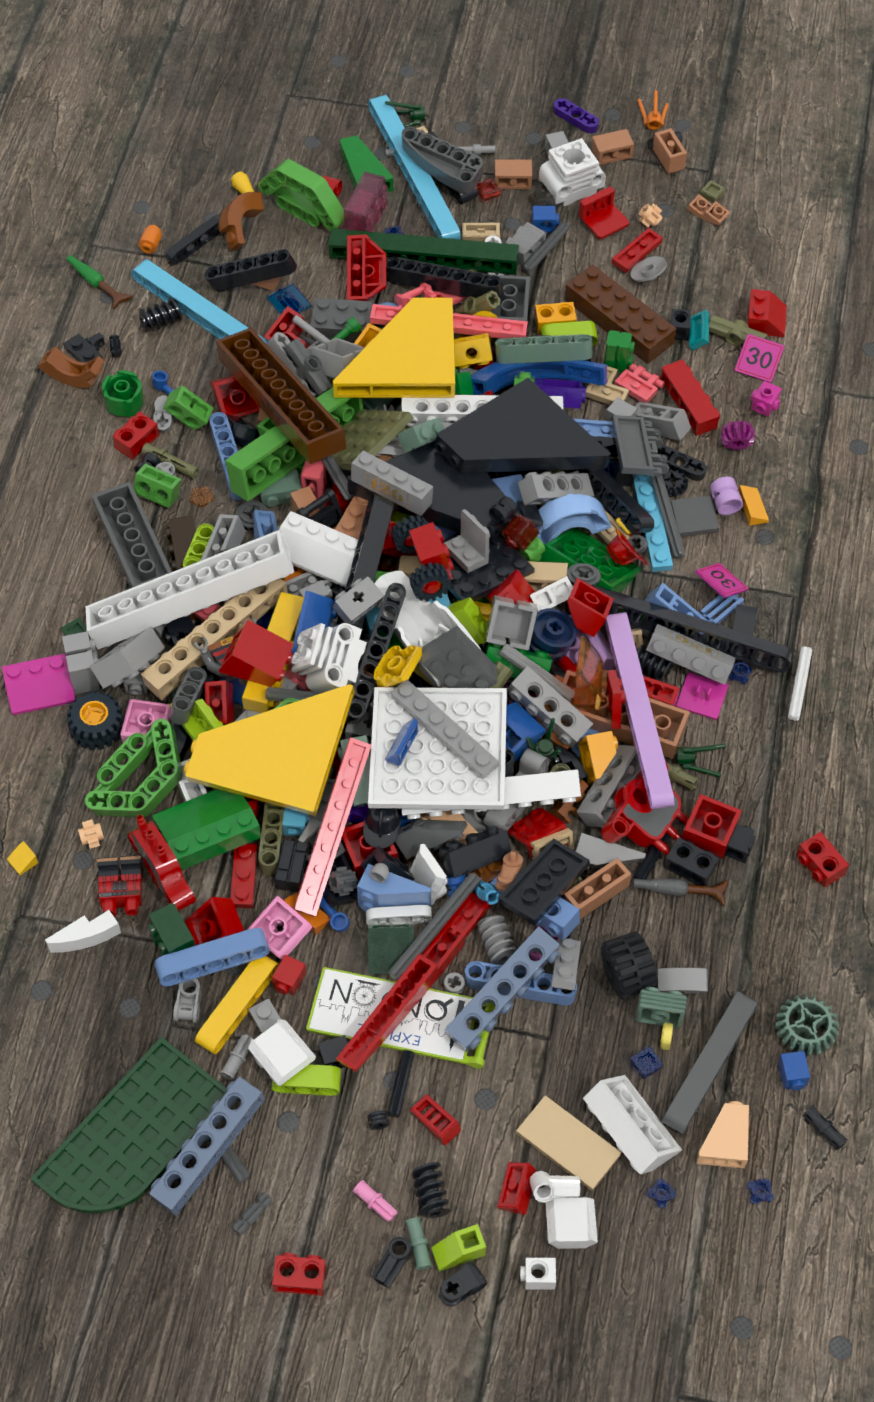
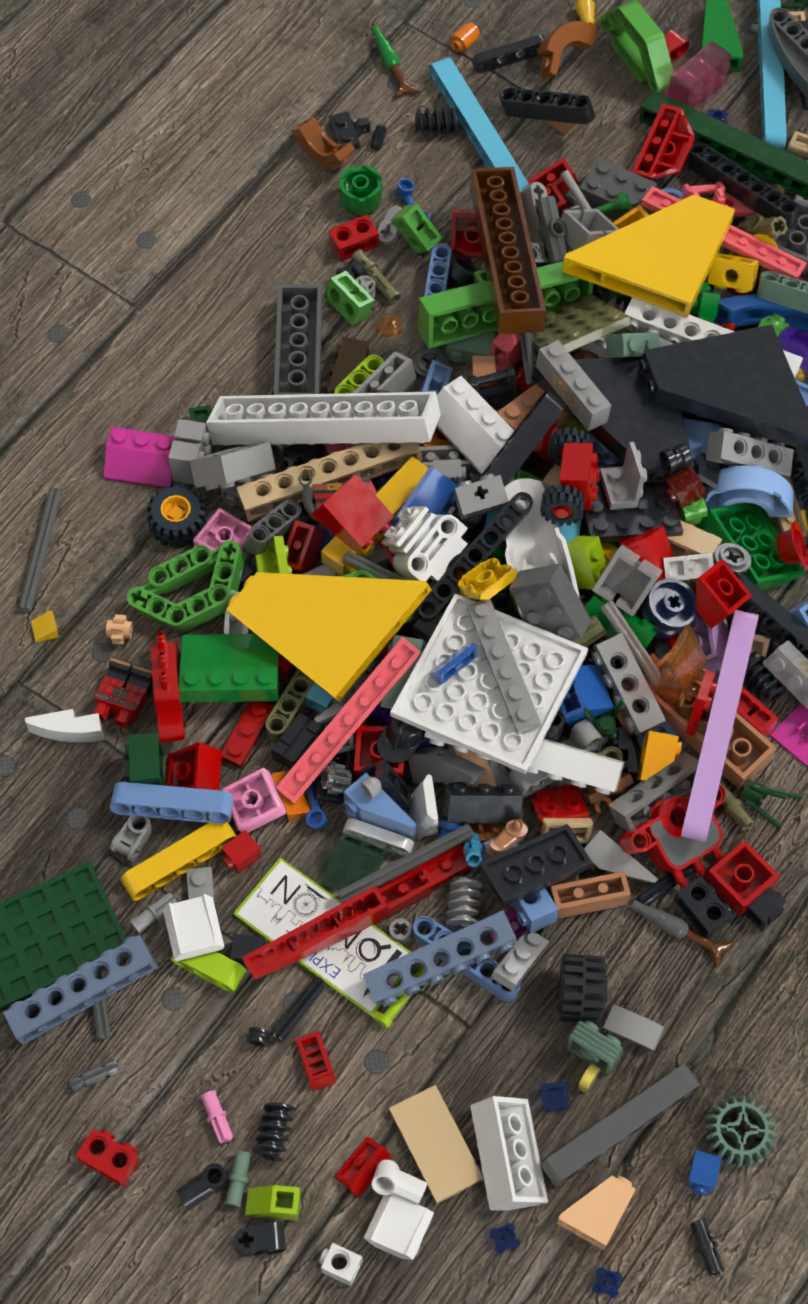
camera: 25 degrees right, 5 degrees up
(290, 297) = (576, 151): piece -> none

